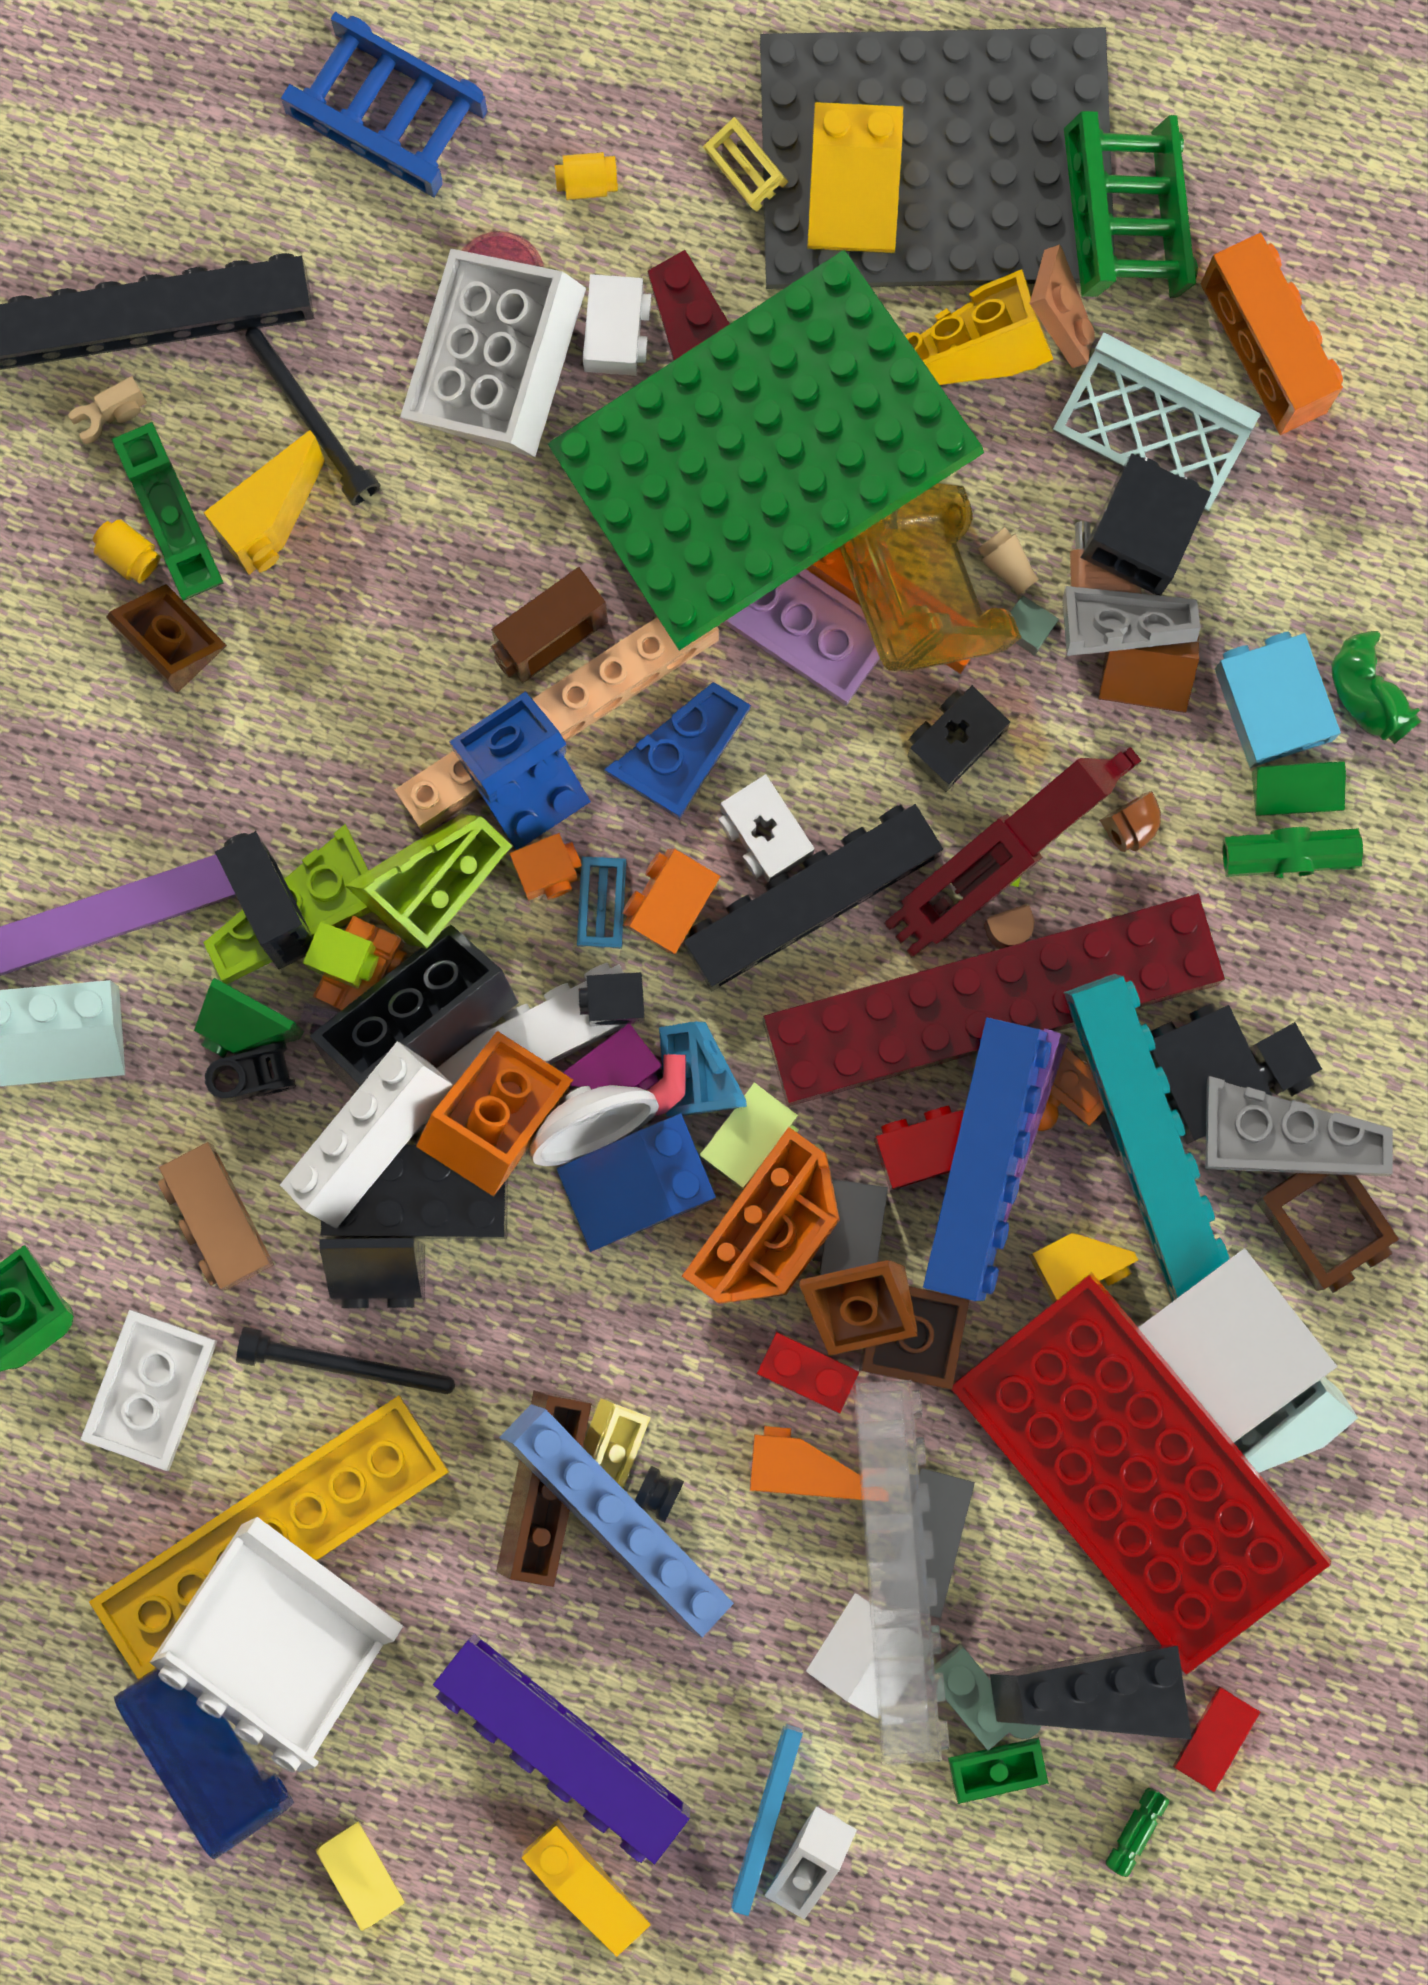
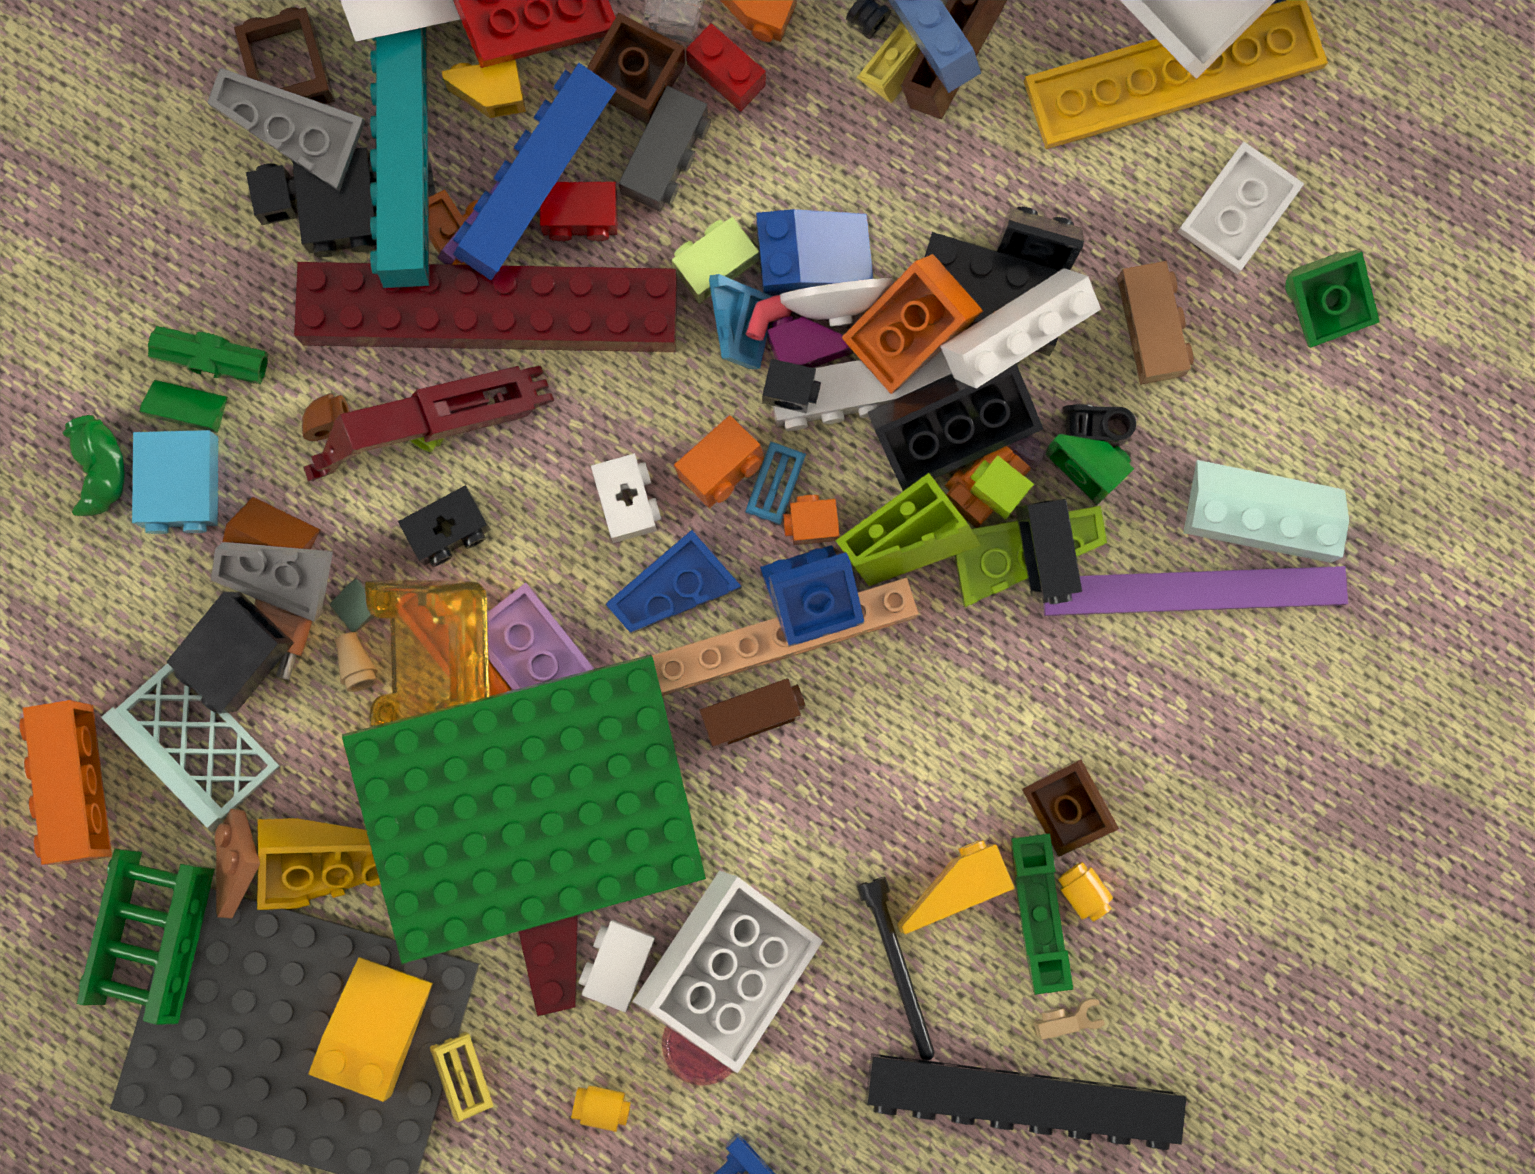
camera: 165 degrees left, 0 degrees up
(256, 1347) = (1147, 215): black piece -> none
(770, 1226) = (720, 176): orange wedge -> none
(813, 896) = (602, 433): black brick -> none
(861, 1306) = (668, 90): dark orange slope -> none
(1010, 927) = (453, 361): medium nougat brick -> none

